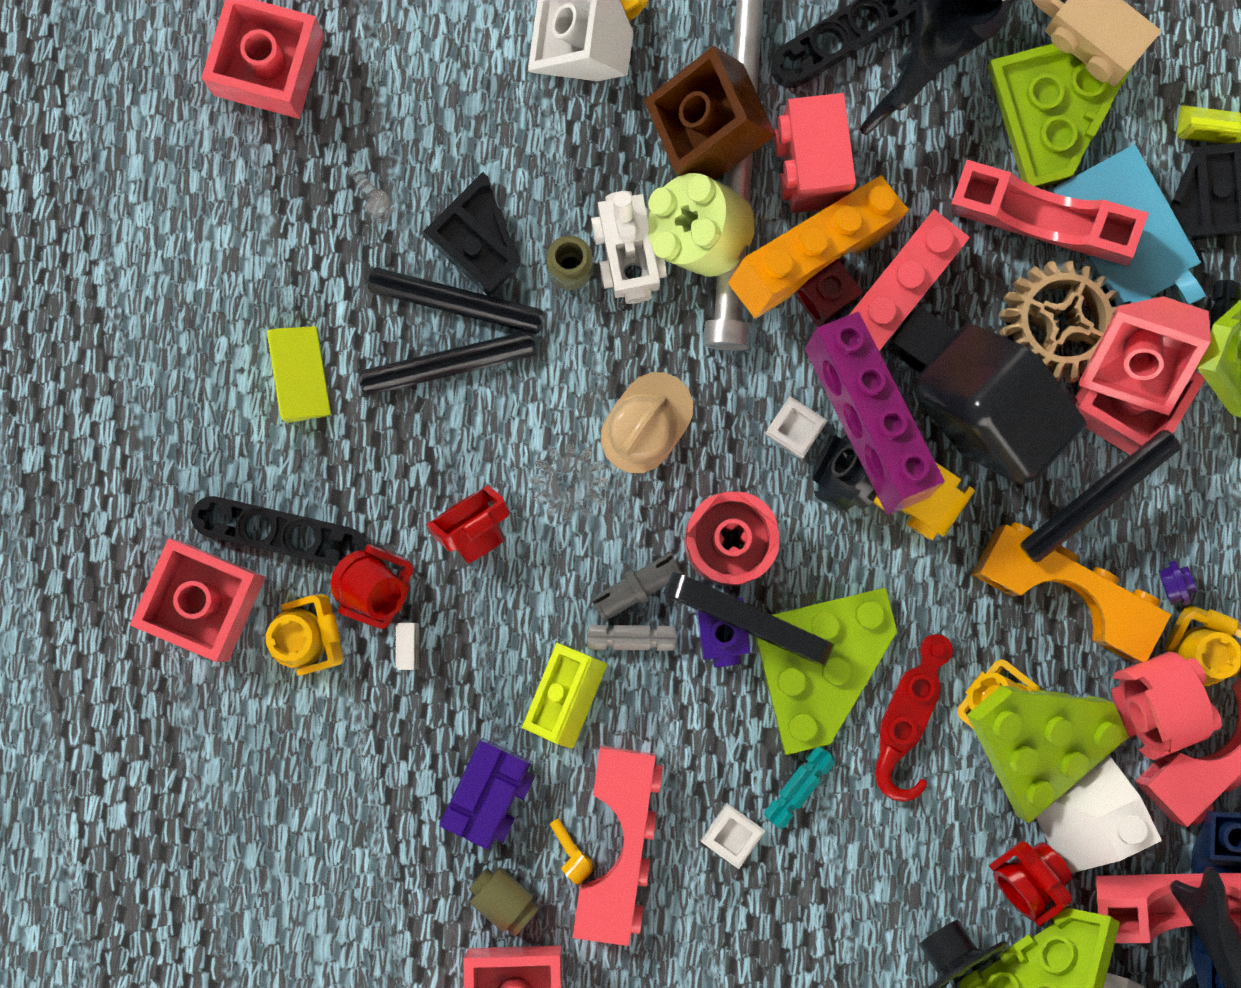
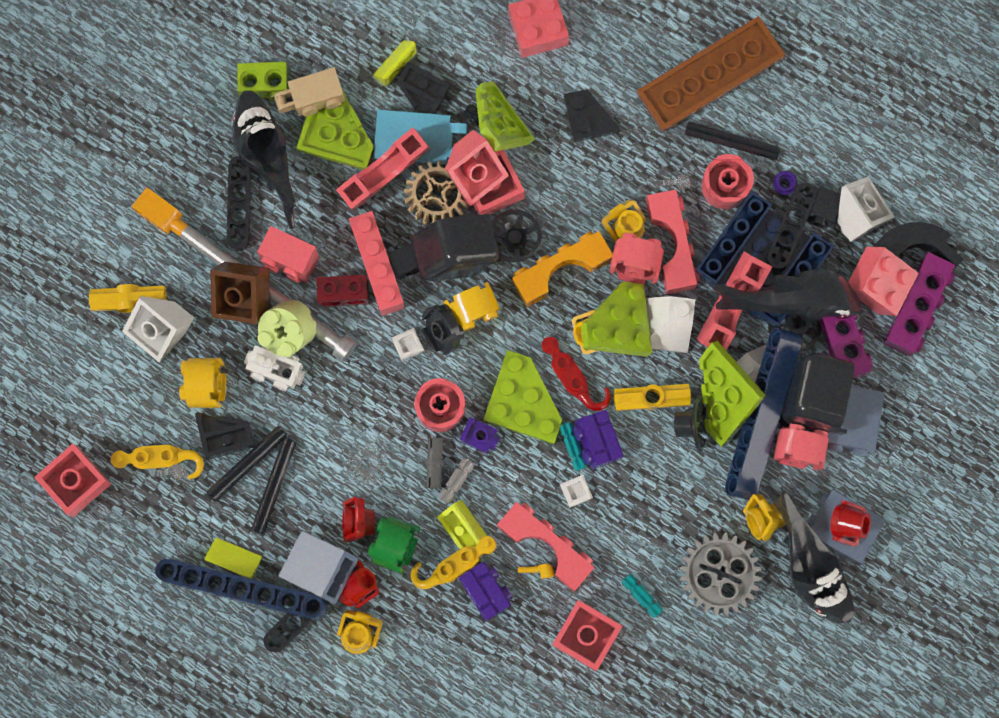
camera: 55 degrees left, 5 degrees down
(197, 601) = (310, 669): coral brick -> none
(243, 397) = (230, 584): none -> dark blue beam
(359, 512) = (318, 567): none -> brick
(381, 162) = (157, 457): none -> yellow piece
(407, 646) = (394, 586): white tile -> none
(469, 606) = (394, 544): none -> green brick
(498, 721) = (455, 565): none -> yellow piece
(503, 900) = (539, 614): olive brick -> none
(535, 153) = (203, 382): none -> yellow brick
(569, 249) = (261, 392): olive brick -> none
(647, 422) = (361, 411): tan piece -> none
(748, 619) = (480, 419): black beam -> none
(793, 258) = (330, 281): light orange arch -> none
(835, 822) = (598, 439): none -> dark purple brick
(873, 413) = (423, 304): magenta brick -> none
(972, 889) = (668, 395): none -> yellow piece
(1033, 880) = (678, 367): red piece -> none
(1070, 481) = (515, 237): none -> black wheel
(1100, 495) = (525, 228): black axle -> none
(1177, 583) = (588, 218): dark purple plate -> none

